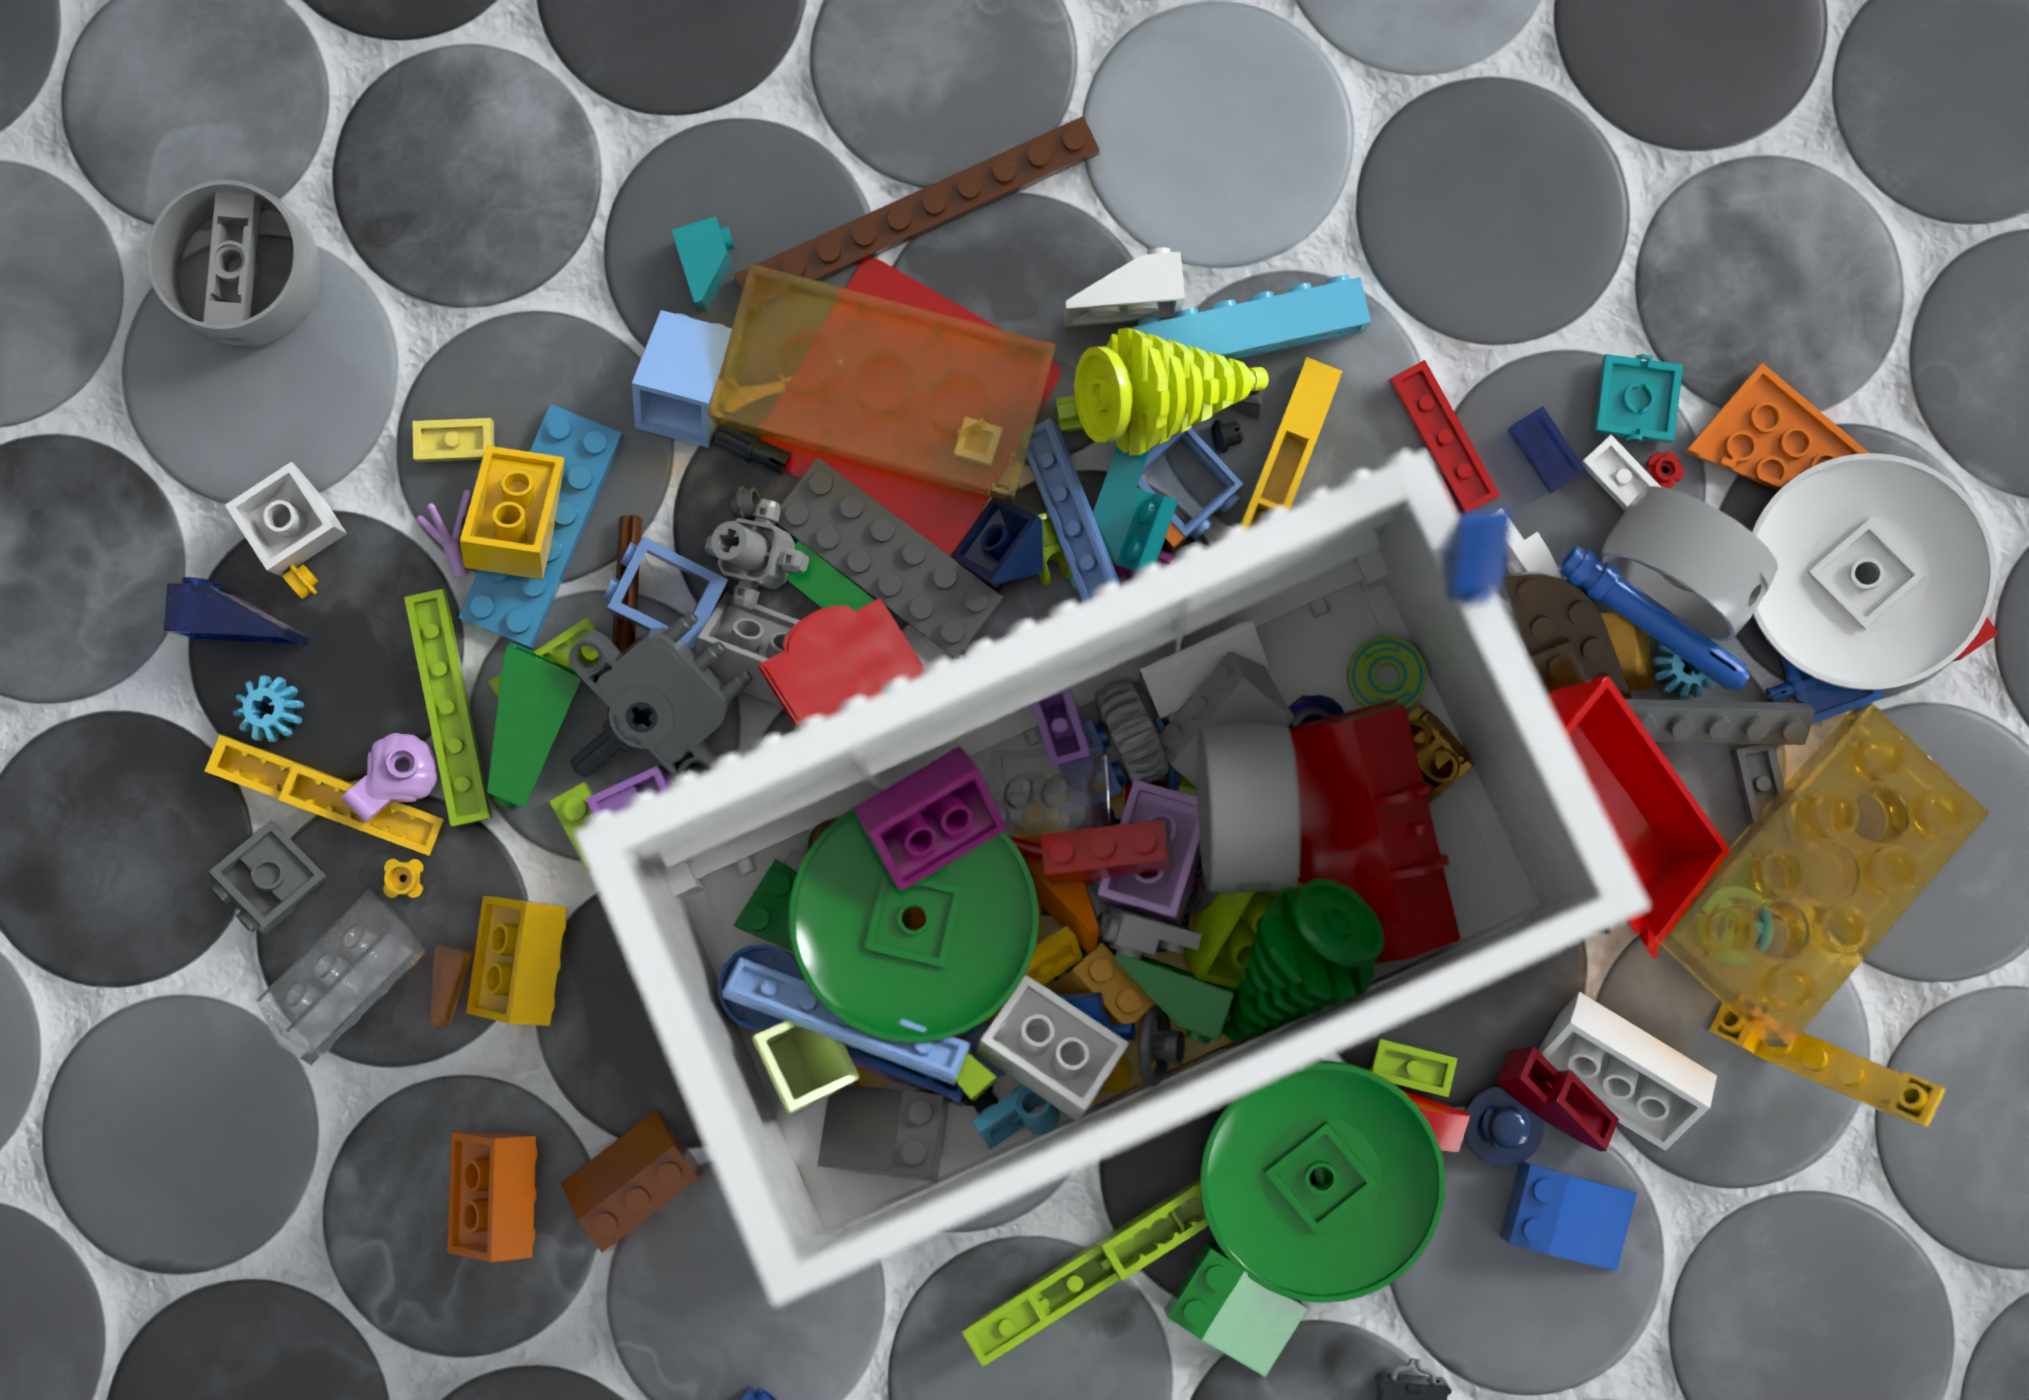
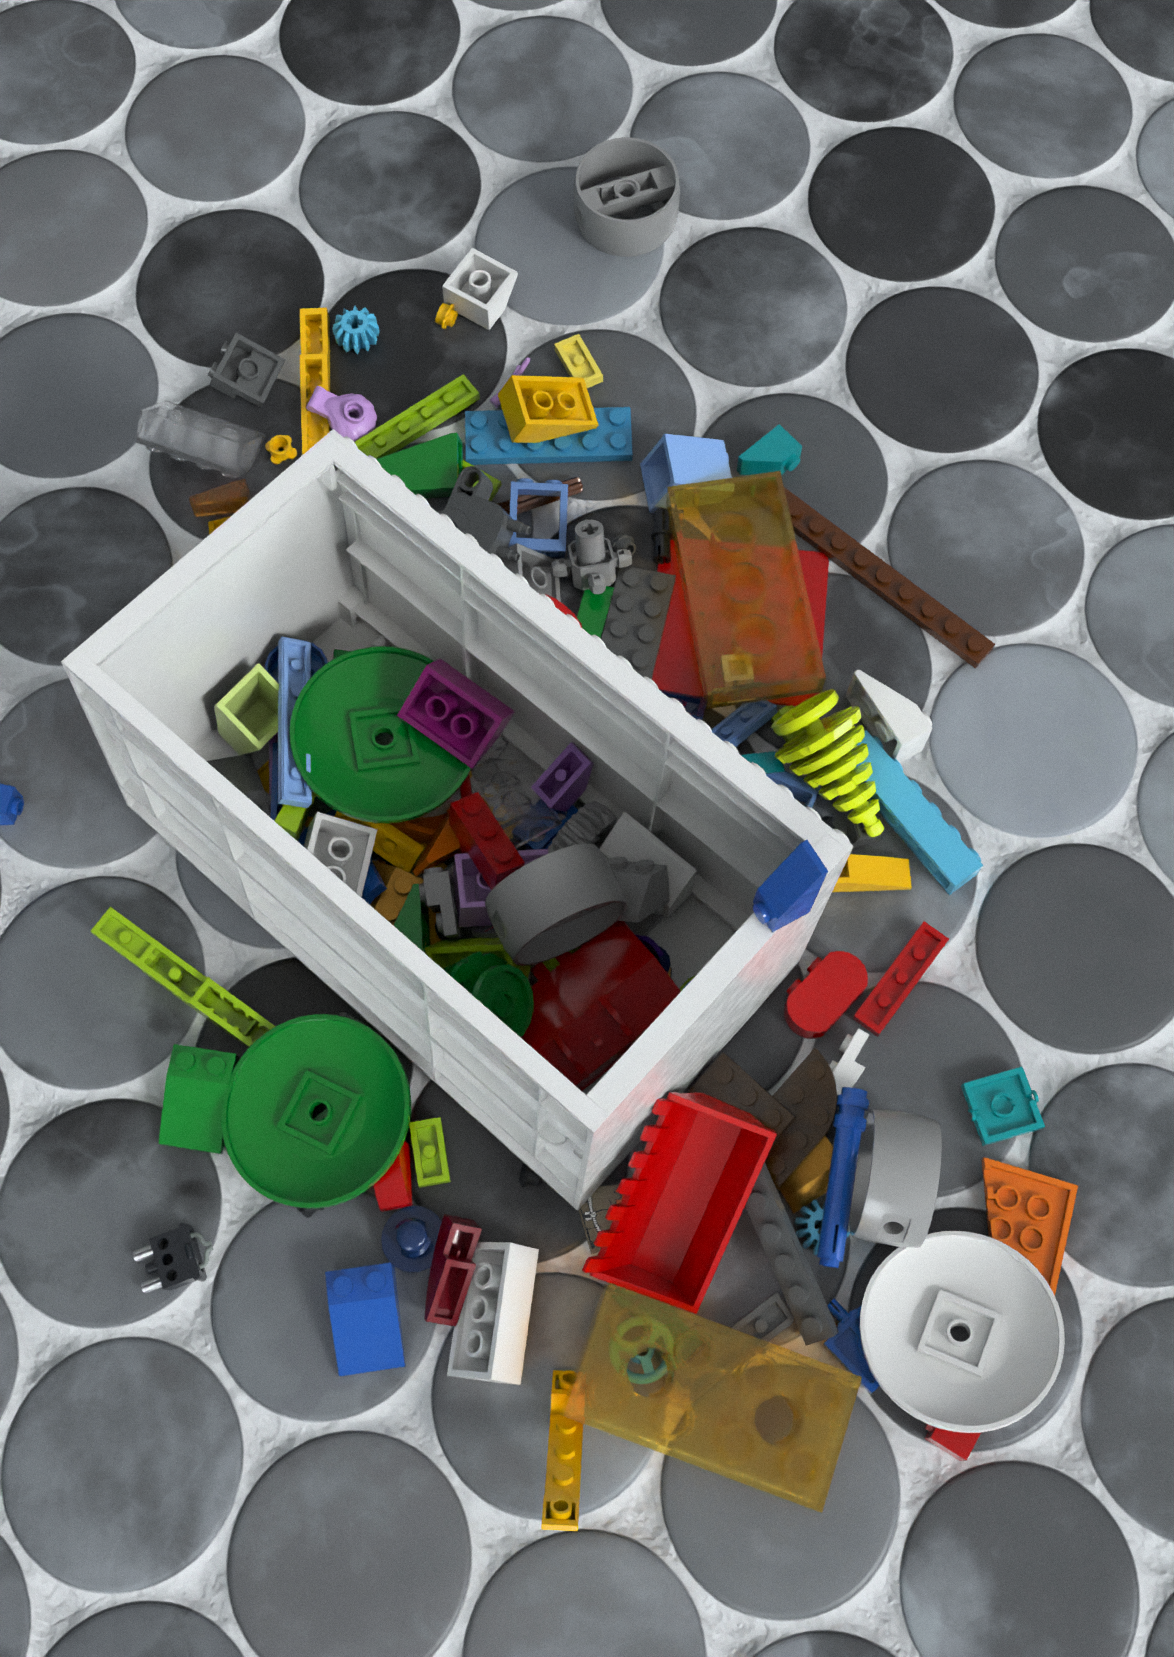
camera: 65 degrees right, 15 degrees down
(207, 613) = (401, 275): clear blue slope -> none
(492, 1195) = (92, 583): orange slope -> none
(1546, 449) = (930, 1055): clear blue plate -> none
(1617, 472) = (944, 1107): white plate -> none
(1669, 460) = (952, 1153): red plate -> none

